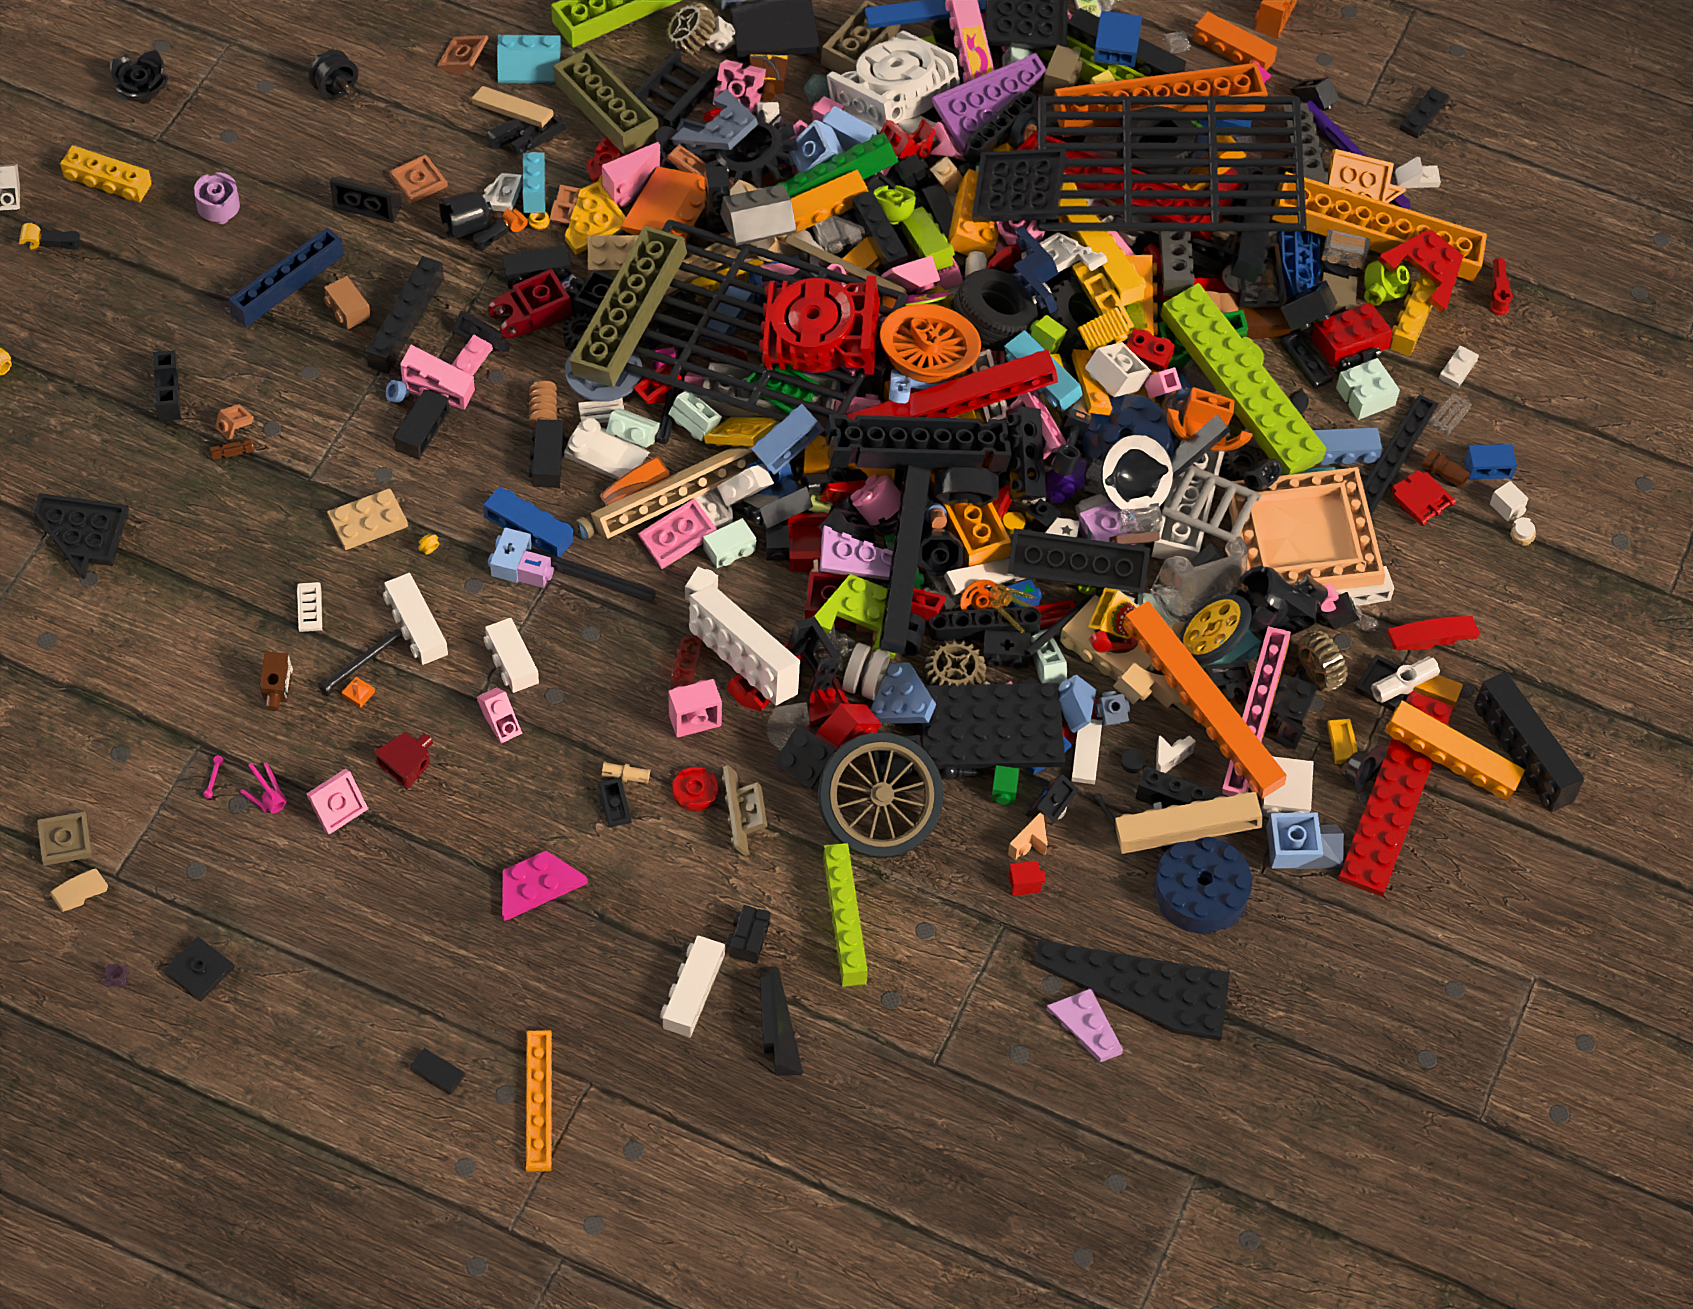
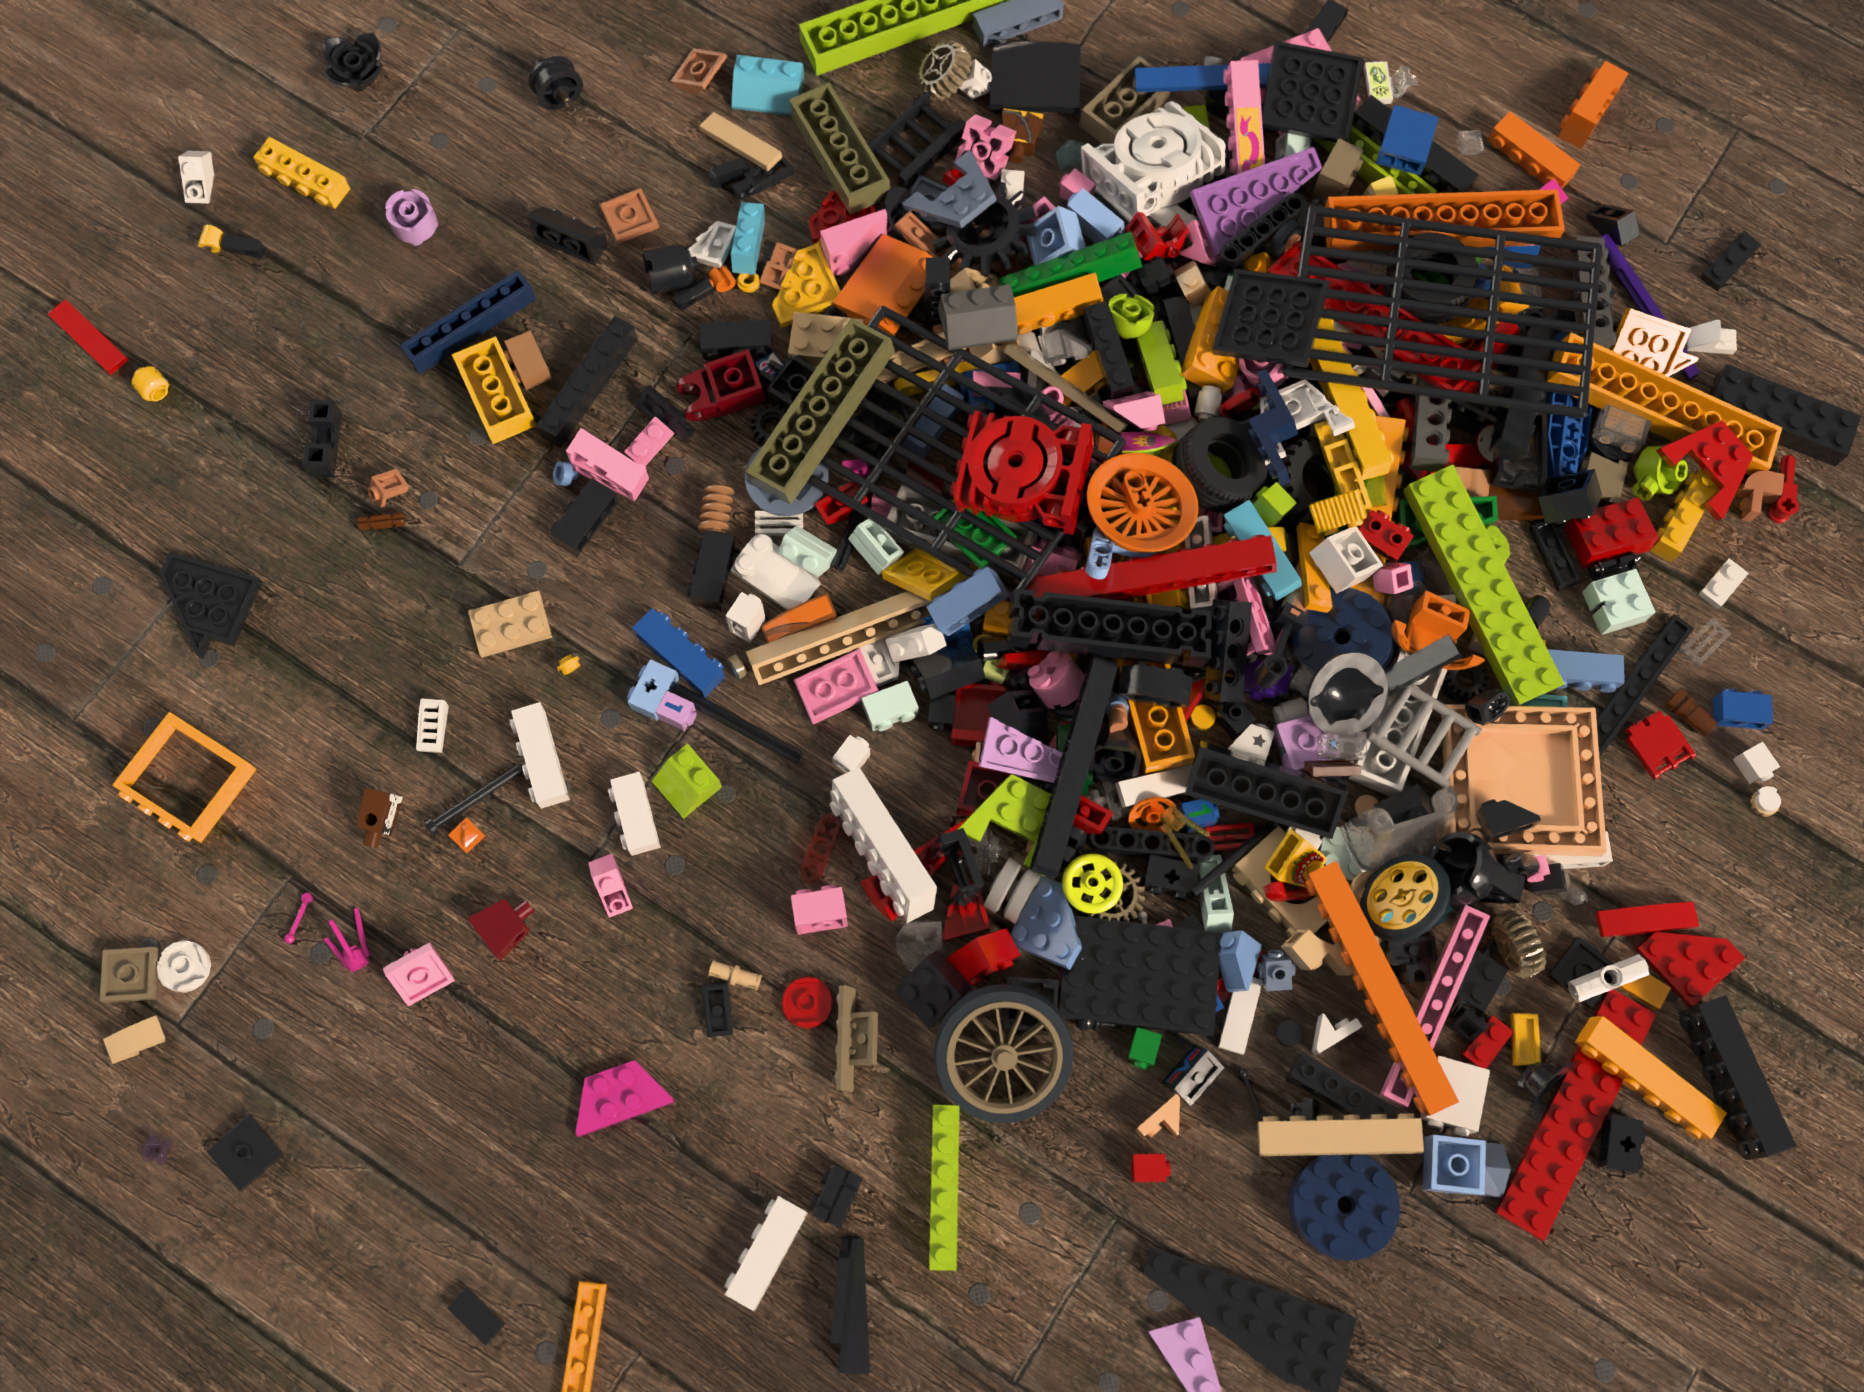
camera: 10 degrees right, 15 degrees up
(99, 642) = (219, 803): none -> light orange window
(113, 828) = (183, 966): none -> white tile
(320, 329) = (494, 390): none -> yellow brick
(554, 623) = (686, 781): none -> lime slope
(586, 484) = (746, 617): none -> white brick
(940, 639) = (1099, 863): none -> neon yellow plate
(1293, 558) = (1504, 819): none -> black slope
(1311, 744) = (1488, 1044): none -> red plate
(1439, 809) = (1615, 1156): none -> black brick
(1476, 661) = (1689, 962): none -> red plate
(1477, 287) = (1759, 489): none -> nougat brick
(1508, 230) = (1806, 422): none -> black brick

